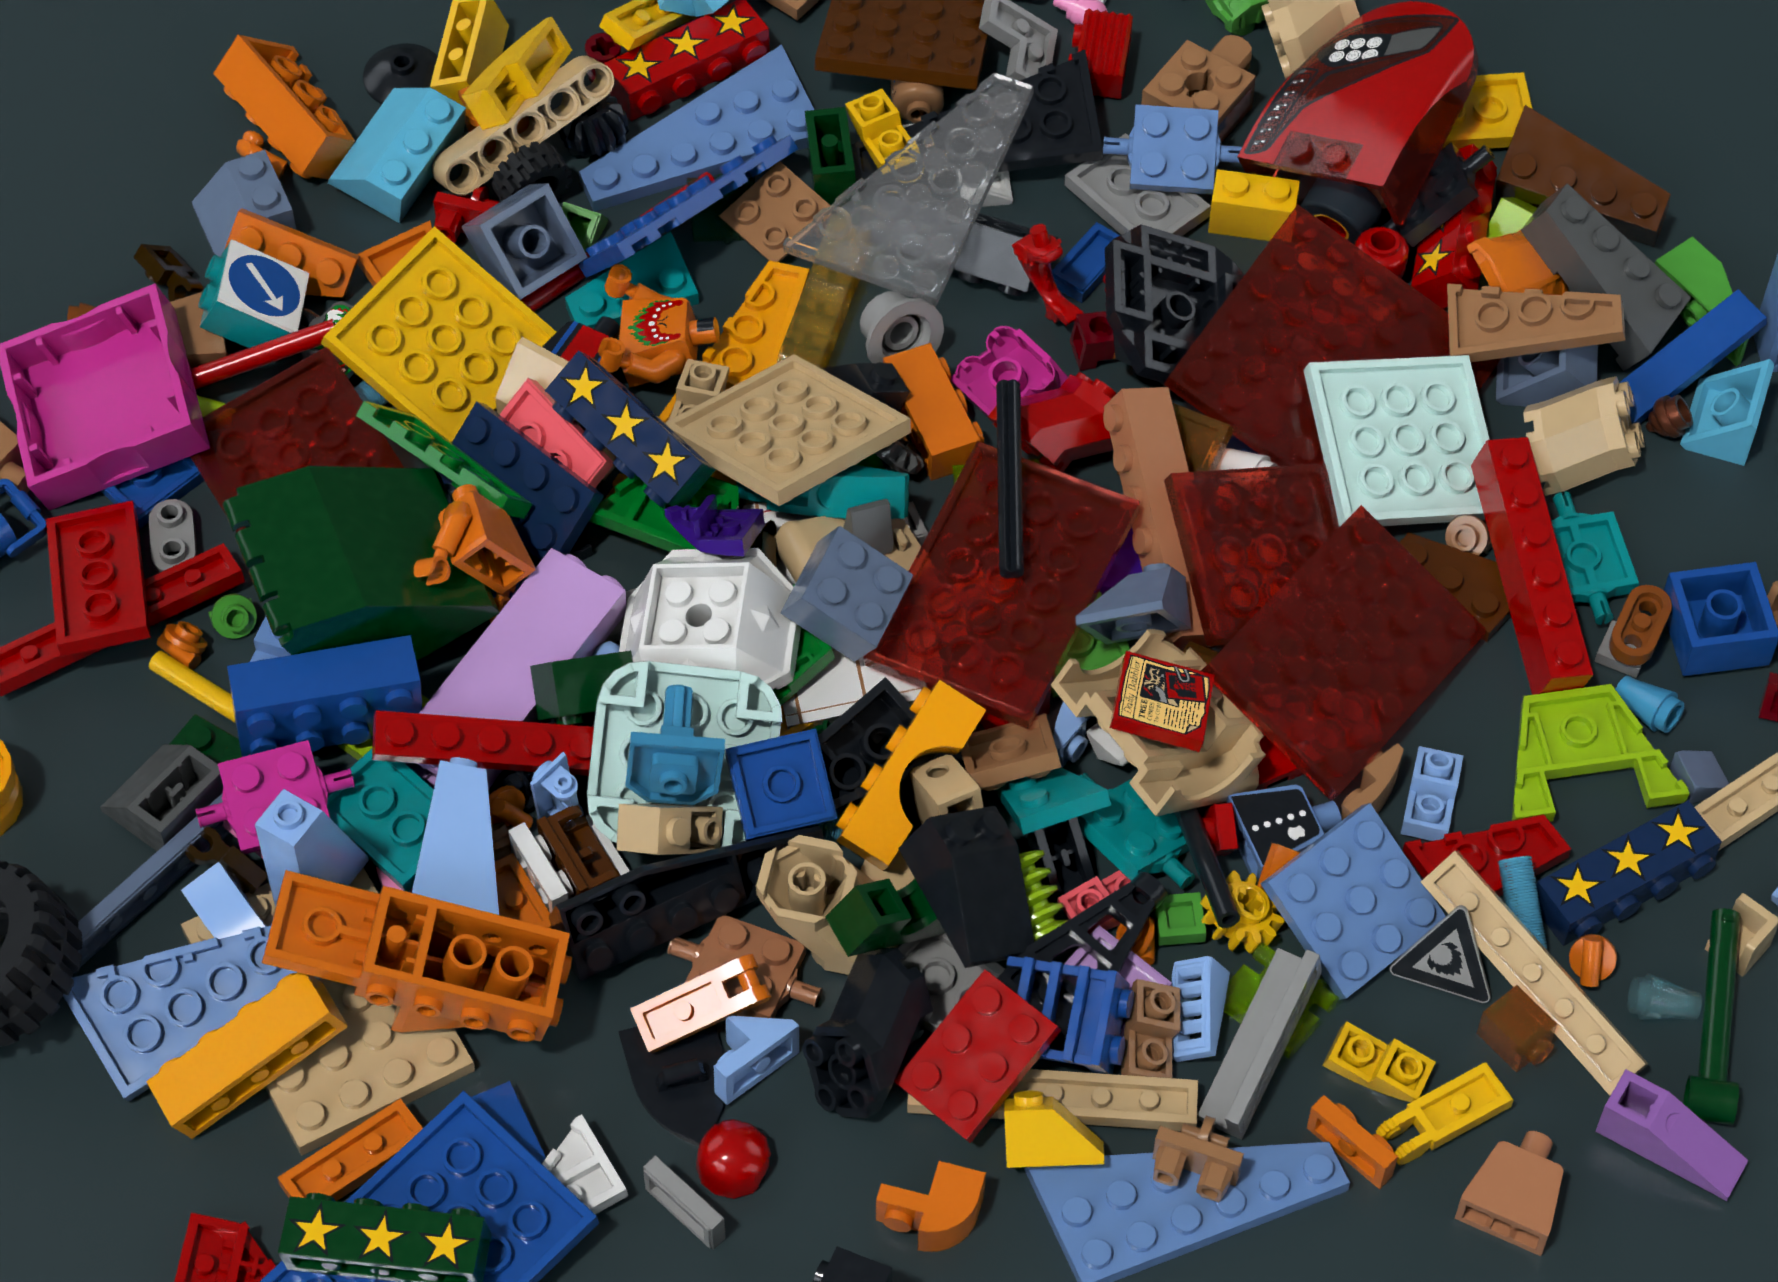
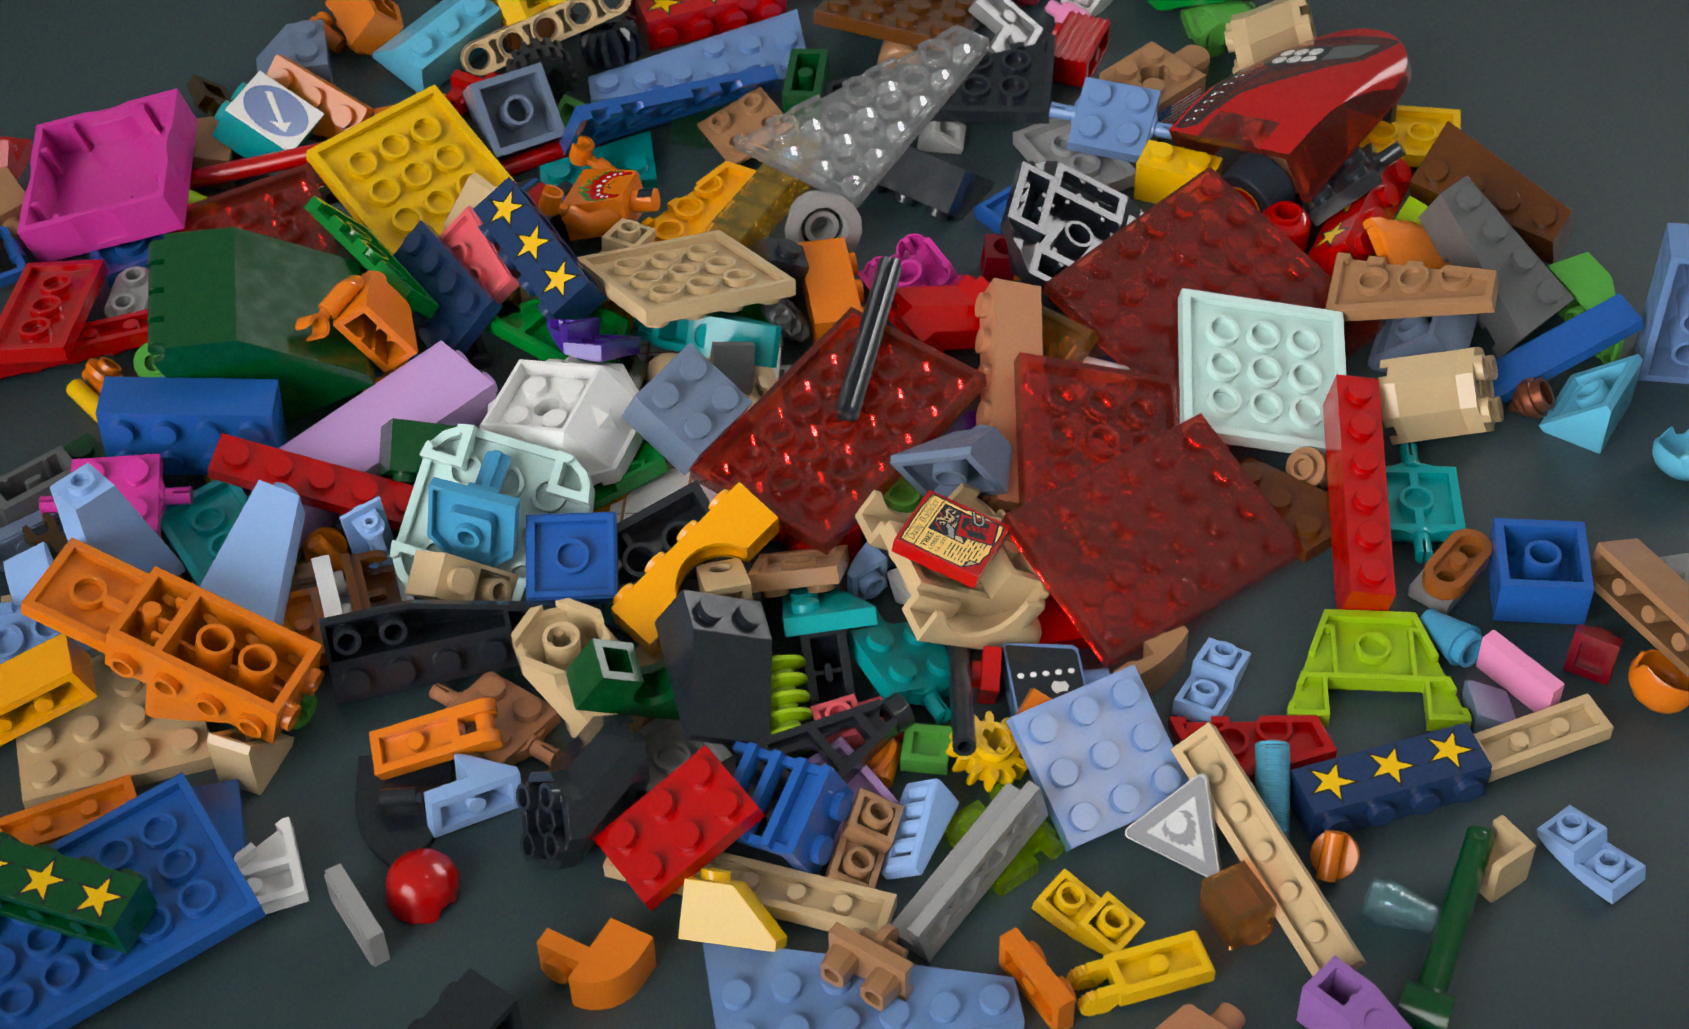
camera: 15 degrees right, 10 degrees down
(509, 1060) = (247, 758): none -> tan slope
(878, 125) = (850, 59): yellow slope -> none
(1036, 254) = (957, 178): red animal -> none
(1722, 733) = (1518, 673): none -> bright pink tile

